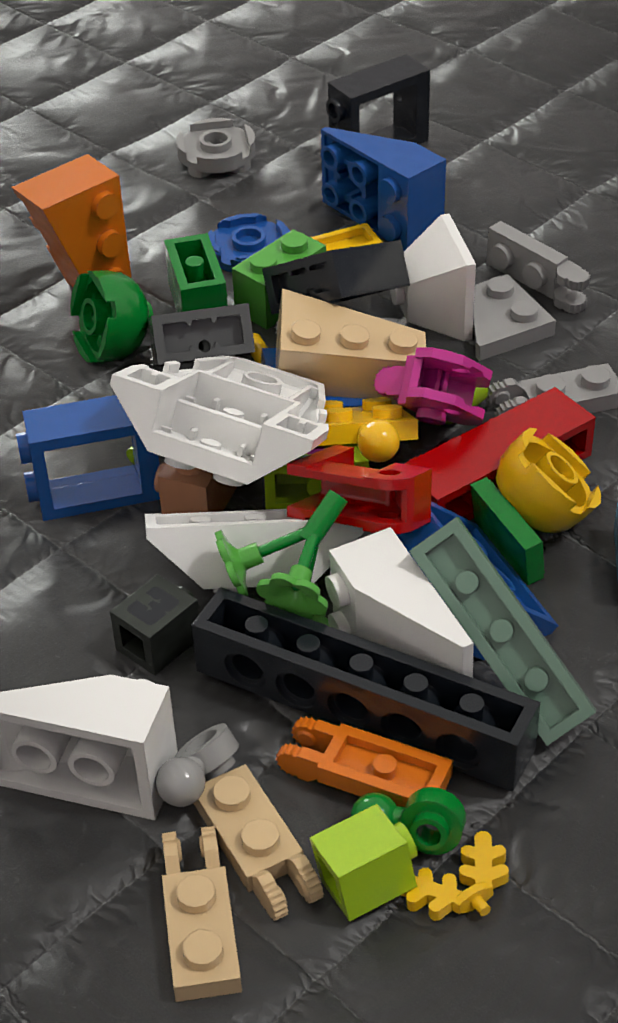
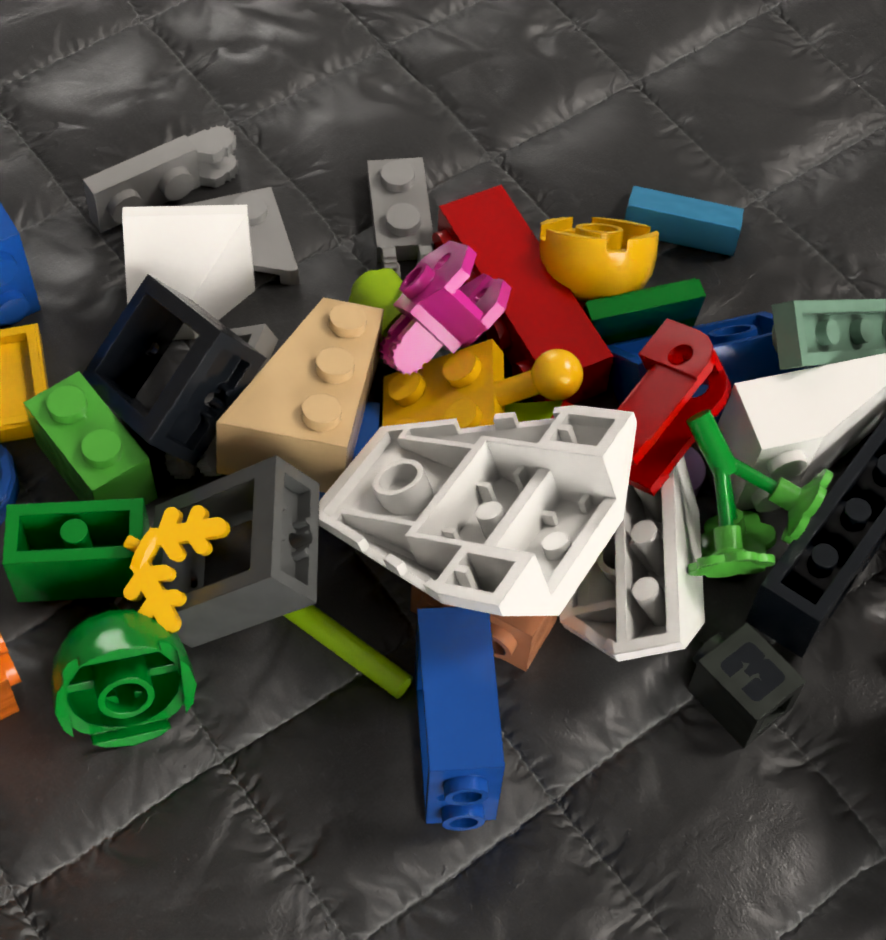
camera: 85 degrees left, 15 degrees up
(183, 288) = (170, 536): none -> yellow animal

